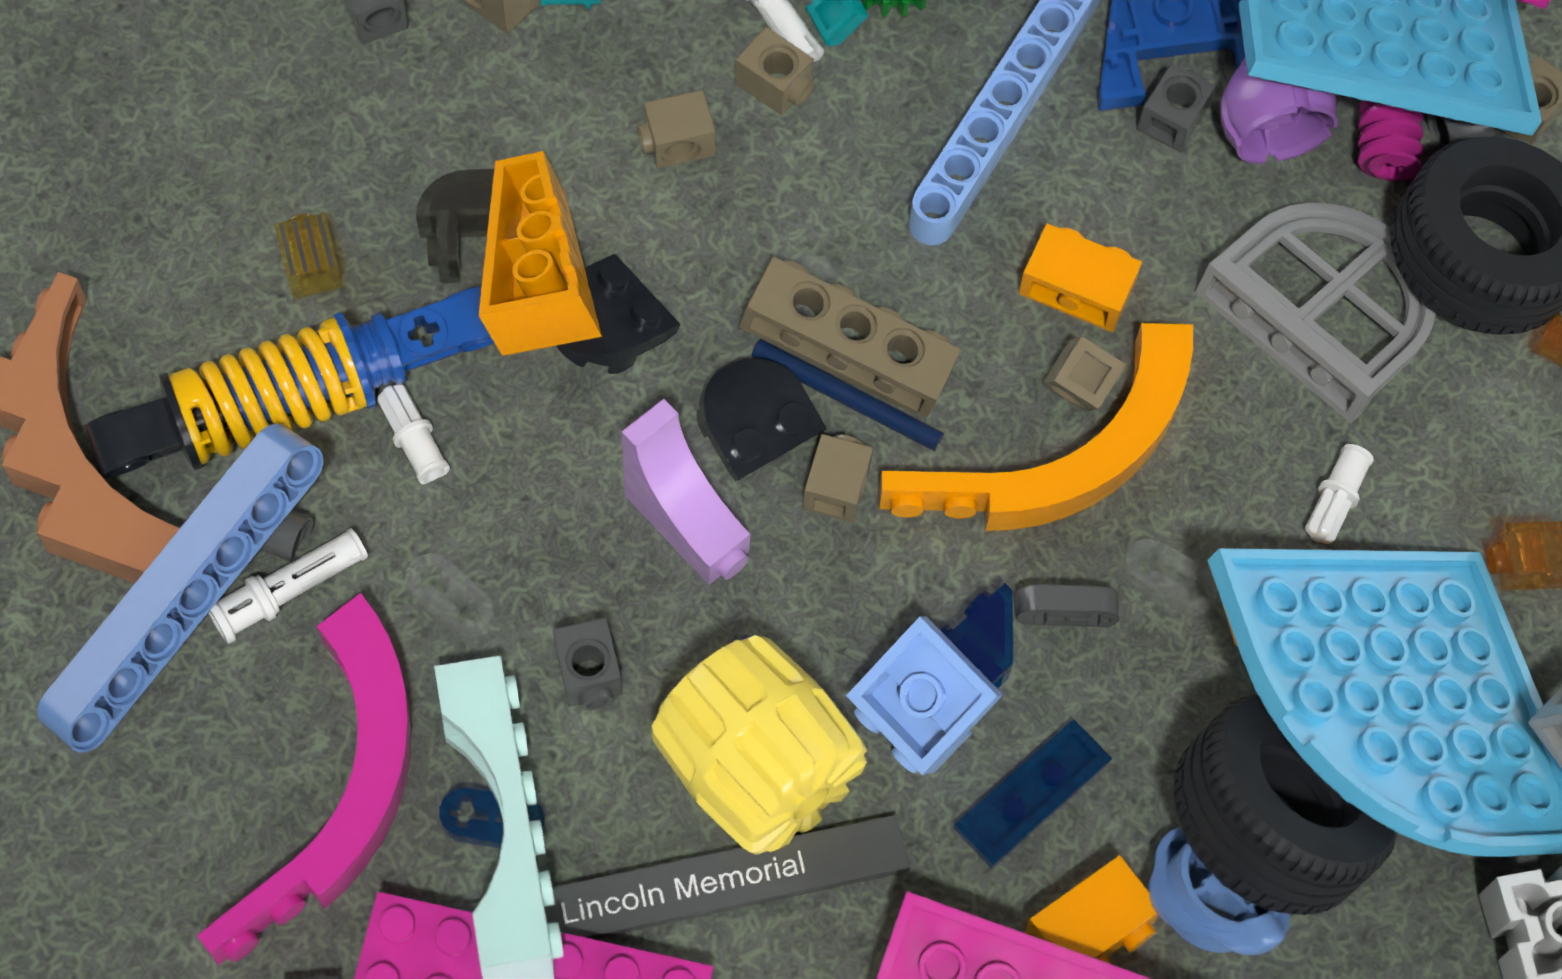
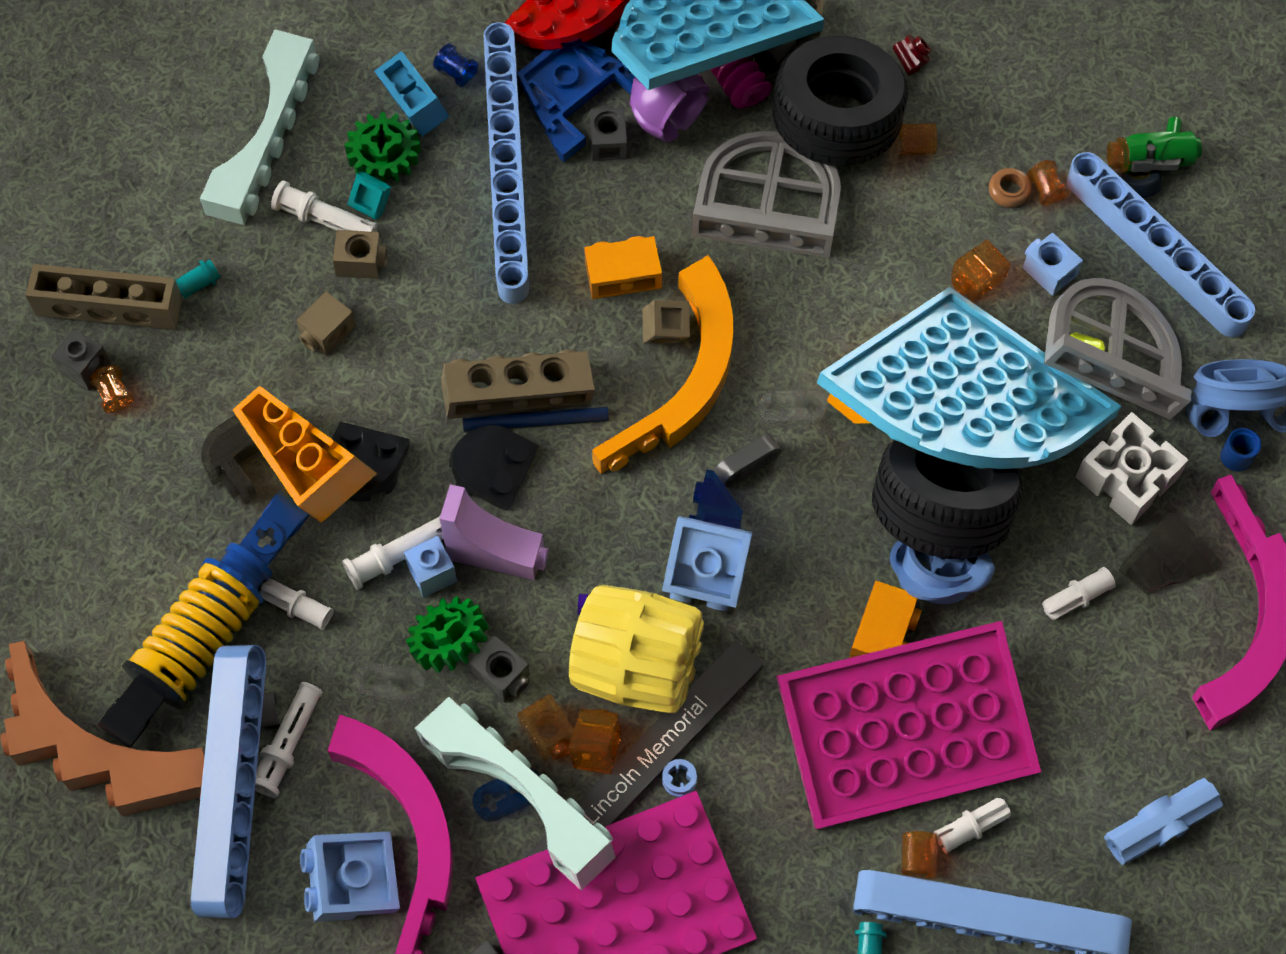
camera: 30 degrees left, 0 degrees up
(240, 791) = (350, 875): none -> light blue plate
(308, 255) = (155, 537): clear yellow brick -> none
(385, 56) = (111, 388): none -> clear orange bush
(546, 443) = (382, 558): none -> white pin
(555, 581) = (447, 634): none -> green gear
(587, 749) = (546, 713): none -> clear orange brick
(593, 488) = (430, 566): none -> light blue brick
(637, 824) = (595, 740): none -> clear orange brick
(692, 933) = (691, 776): none -> light blue bush
(837, 477) = (567, 470): dark tan brick -> none
(1032, 793) = (800, 579): clear blue tile -> none
(1339, 493) = (851, 302): white axle -> none

